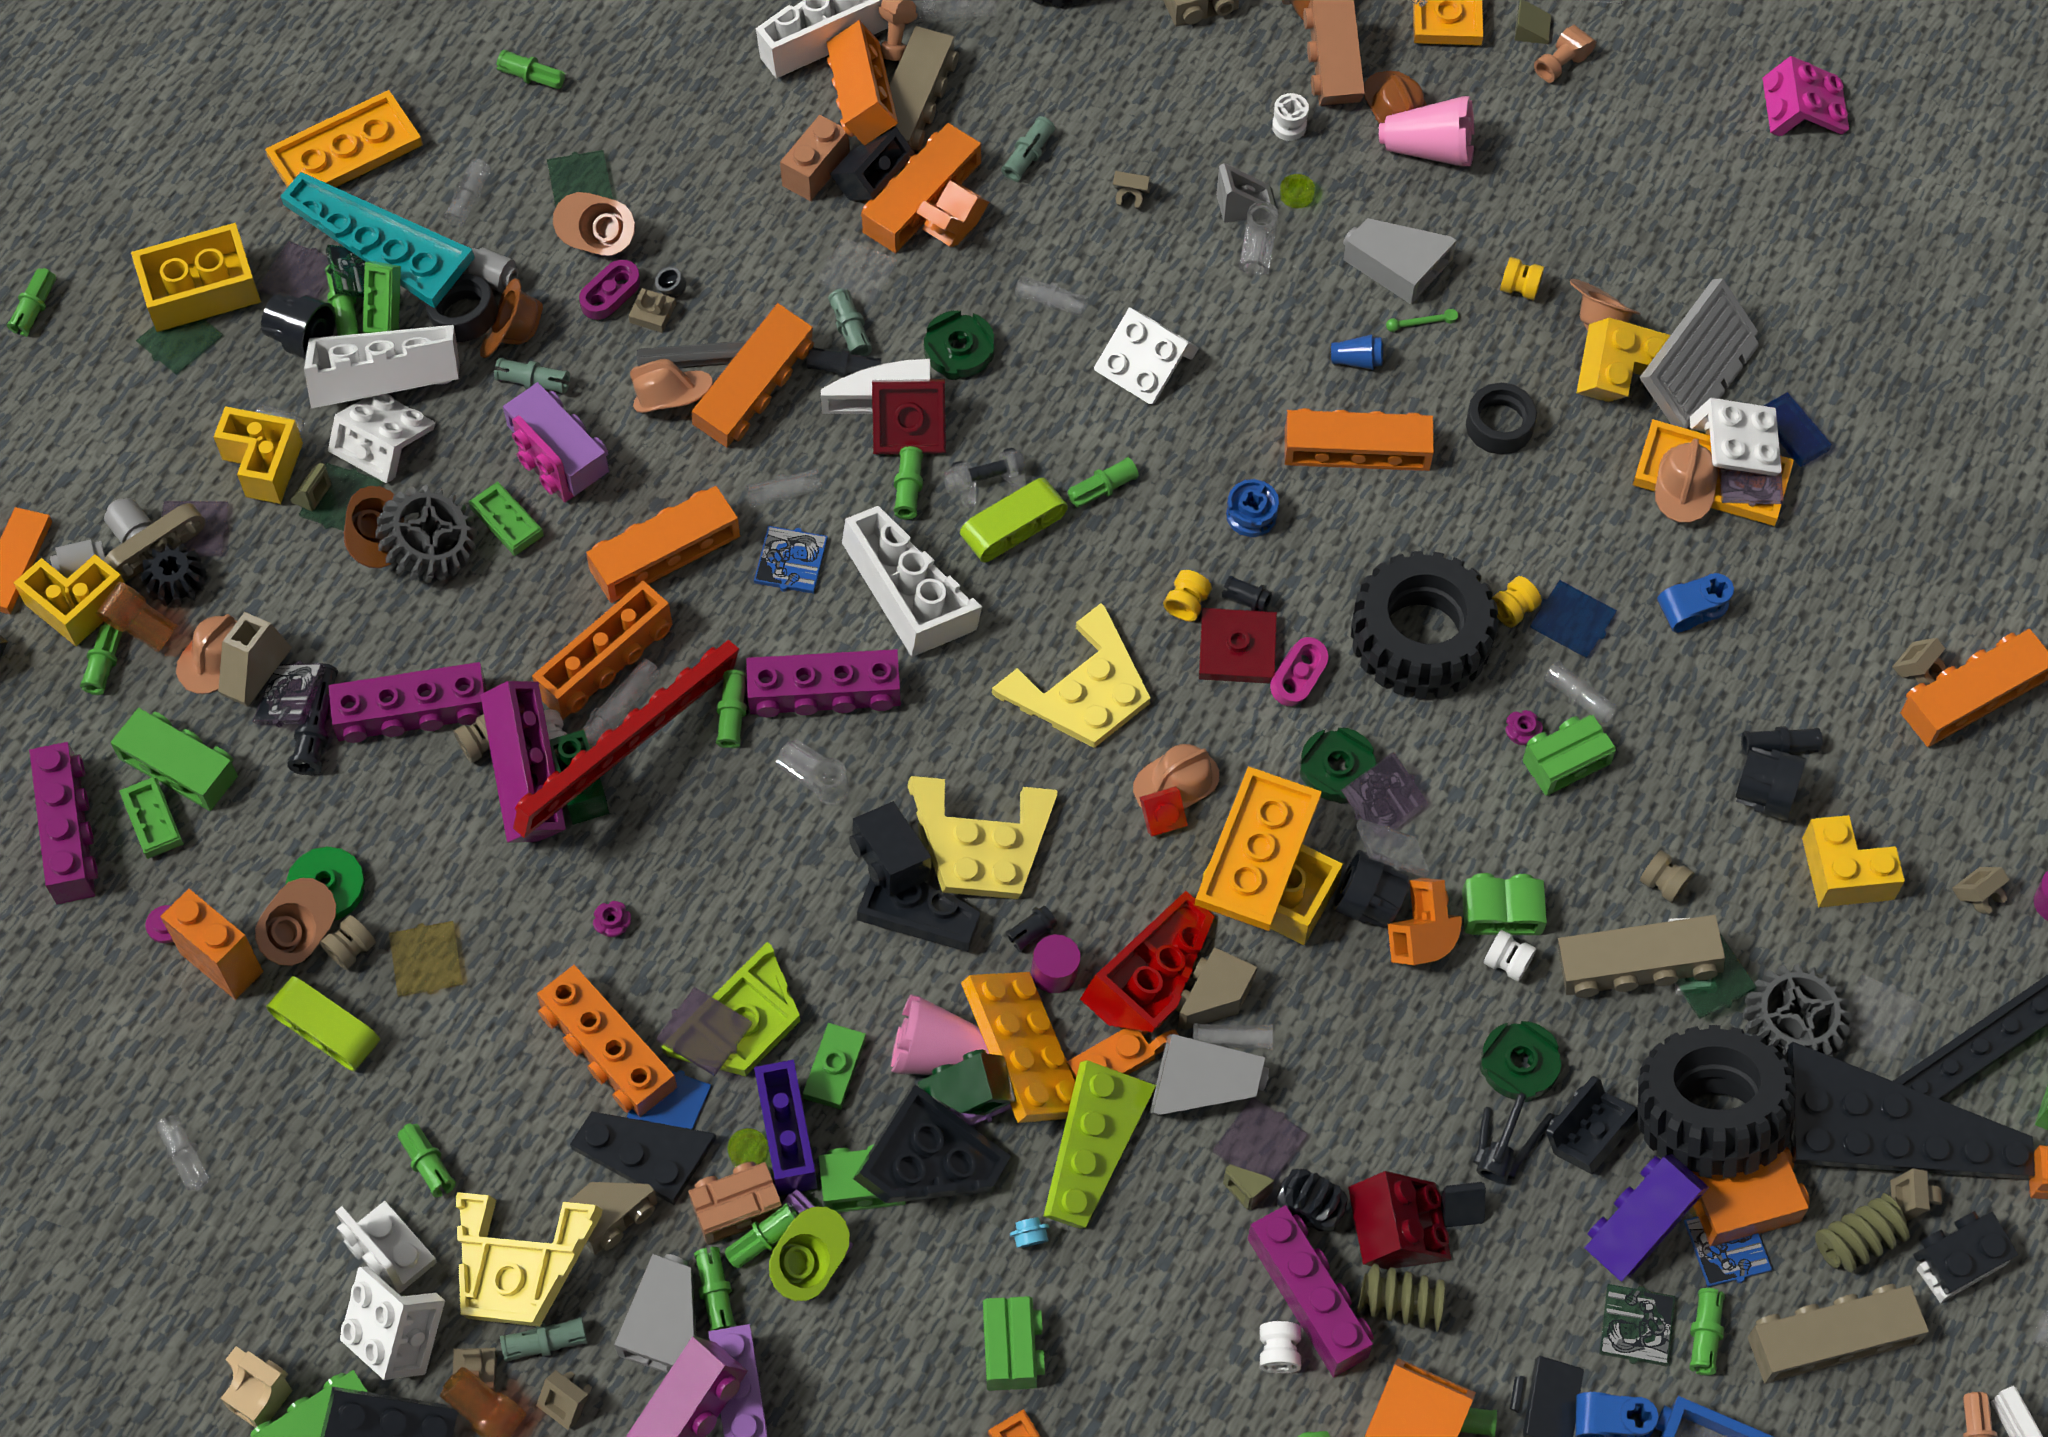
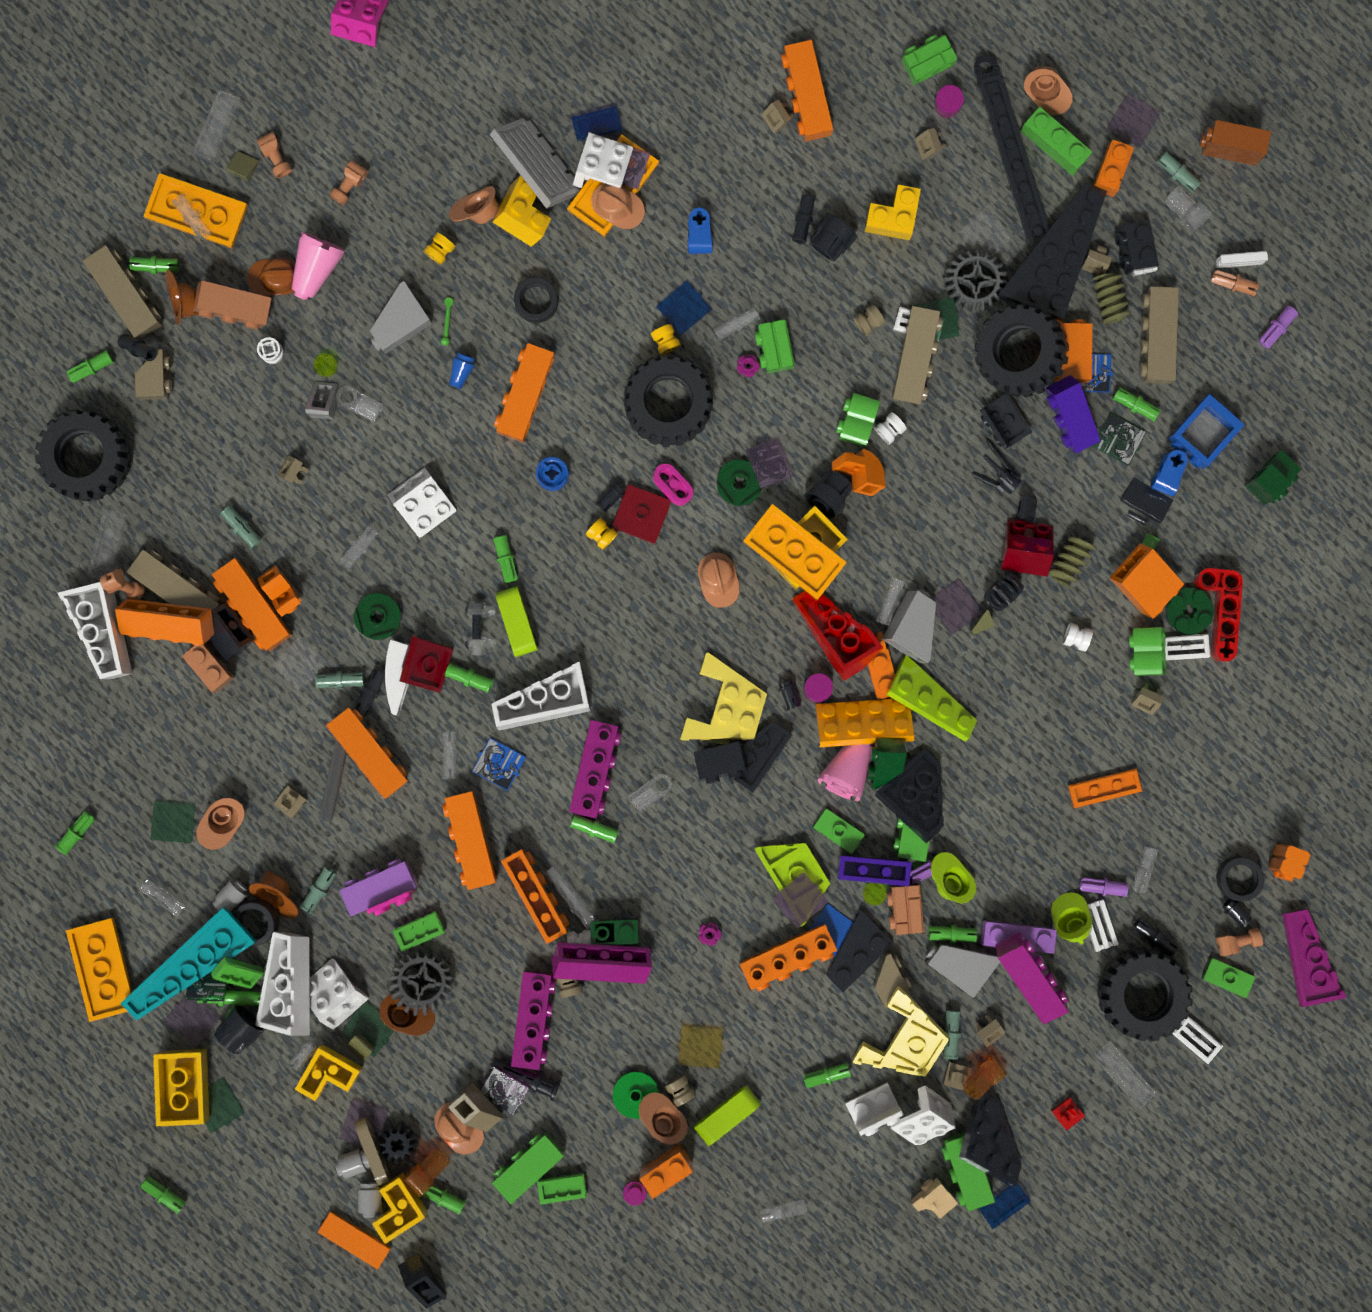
camera: 75 degrees left, 25 degrees up
(63, 823) = (551, 1241): magenta brick -> none
(606, 289) = (268, 825): magenta plate -> none
(616, 744) = (610, 907): red plate -> none
(664, 386) = (358, 806): nougat piece -> none
(670, 282) = (270, 784): black hinge -> none
(761, 1236) = (930, 899): bright green axle -> none
(1010, 1343) = (1032, 781): bright green brick -> none
(1030, 1232) = (972, 752): medium azure plate -> none
(1094, 696) = (649, 609): light yellow wing -> none
(1163, 811) = (740, 594): red plate -> none
(1219, 989) = (862, 601): dark tan slope -> none
(1310, 1291) = (1054, 610): magenta brick -> none
(1392, 848) = (807, 472): clear piece -> none
(1518, 1039) = (966, 447): dark green plate -> none
(1579, 152) = (355, 176): none -> nougat leg

